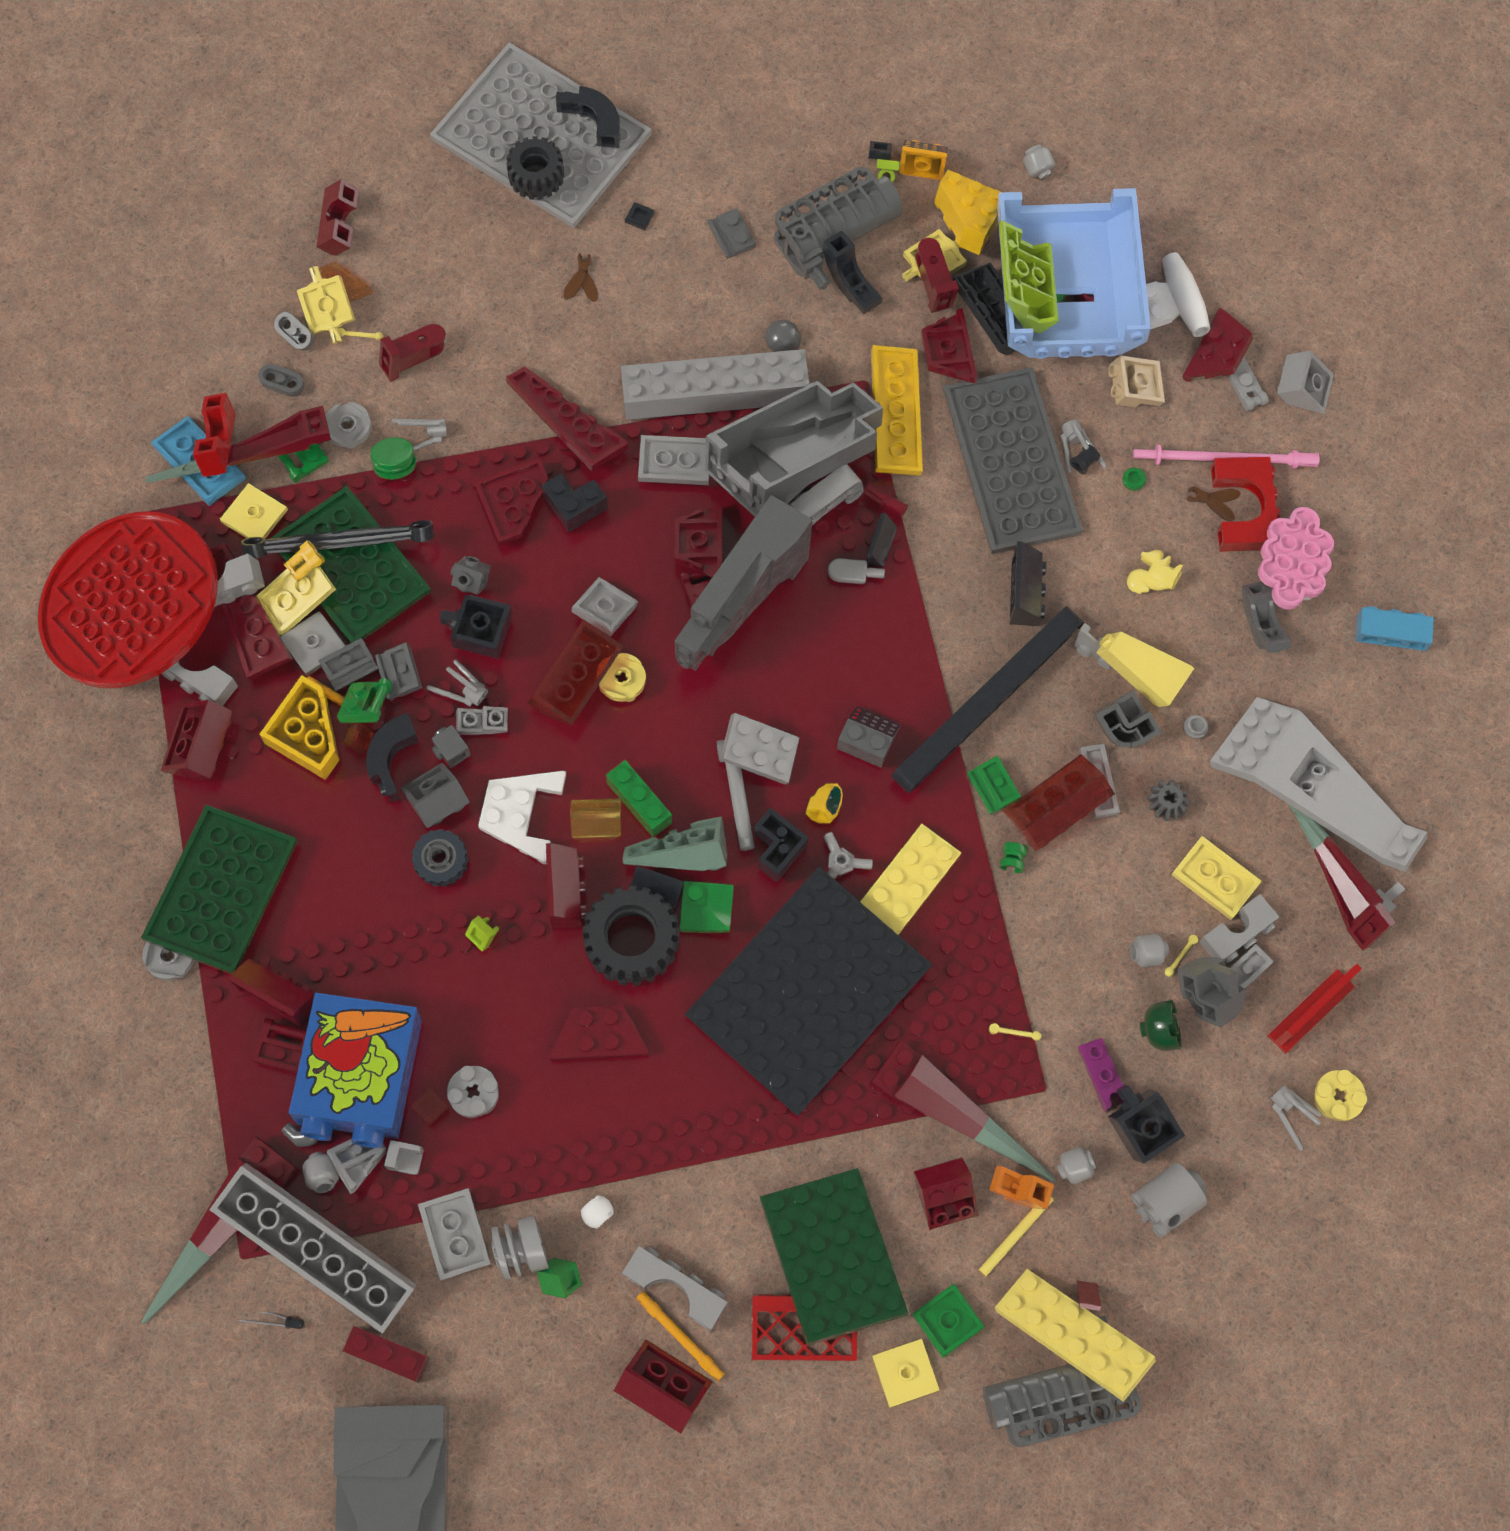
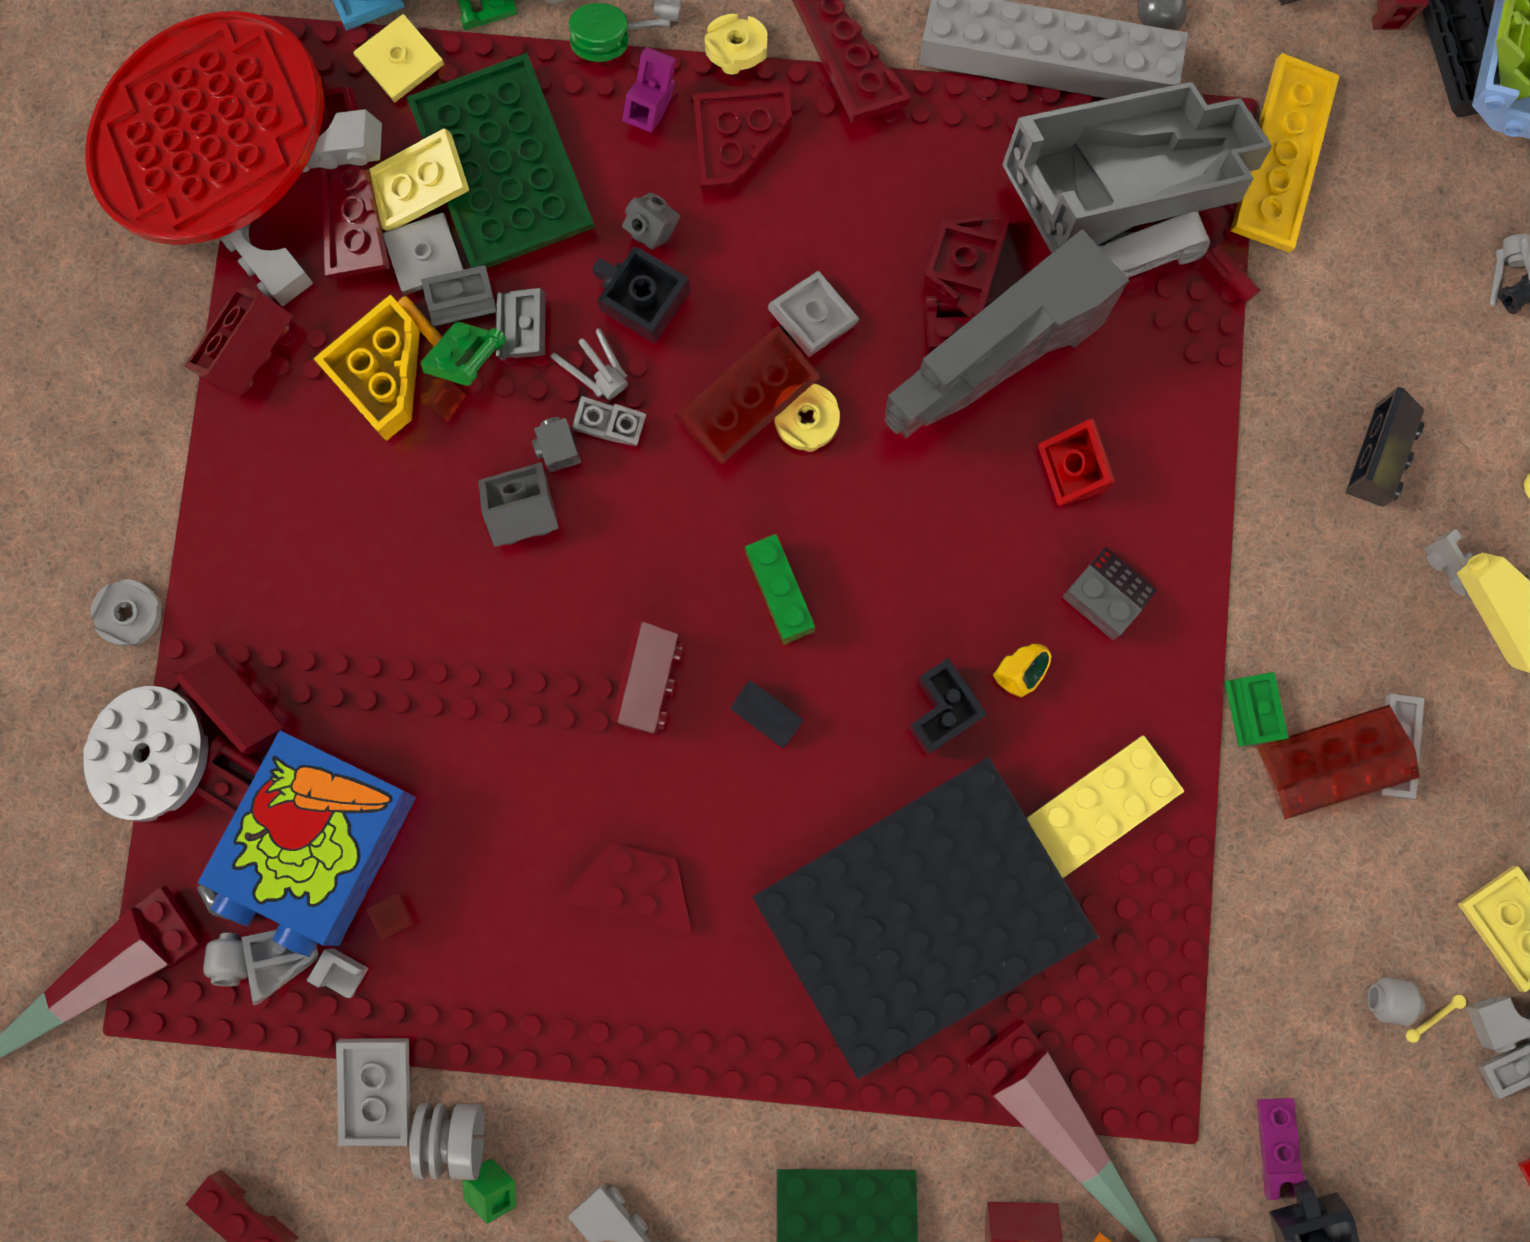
camera: 25 degrees right, 10 degrees up
(219, 889) = (210, 548): dark green plate -> none
(238, 1054) = (176, 760): none -> plate
(289, 1322) = (138, 1136): piece -> none
(310, 555) = (448, 140): yellow piece -> none
(313, 1247) = (186, 1061): light grey brick -> none
(383, 747) = (468, 423): black arch -> none
(416, 531) = (599, 141): black piece -> none
(433, 844) = (479, 587): black wheel -> none
(444, 487) = (651, 92): none -> magenta brick
(478, 1105) = (431, 913): light grey plate -> none
(481, 933) = (522, 708): lime tile -> none
(496, 448) = (736, 56): none -> light yellow plate
(510, 806) = (610, 549): white wing -> none
(576, 506) = (815, 165): black brick -> none
(595, 818) = (716, 596): clear yellow panel -> none
(597, 1211) = (562, 1120): white piece -> none
(631, 903) = (667, 762): black tyre -> none
(673, 460) = (963, 138): light grey plate -> none
(694, 849) = (827, 677): sand green wedge -> none
(706, 907) = (824, 762): green plate -> none
(739, 803) = (918, 561): light grey piece -> none
(759, 748) = (958, 569): light grey plate -> none
(819, 655) = (1076, 463): none -> red slope
(841, 860) = (1021, 753): light grey piece -> none
(852, 571) = (1157, 359): light grey piece -> none
(881, 541) = (1209, 330): black slope -> none
(949, 348) = (1383, 86): dark red wing -> none
(986, 700) = (1285, 591): black beam -> none
(994, 1029) = (1154, 1042): light yellow hinge -> none
(1012, 460) = (1421, 266): dark grey plate -> none
(1013, 856) = (1252, 816): green wheel -> none
(1126, 721) = (1466, 678): dark grey brick -> none
(1161, 1026) = (1380, 1112): dark green cylinder -> none
(1167, 808) = (1487, 816): dark grey gear -> none
(1212, 990) = (1466, 1086): dark grey brick -> none

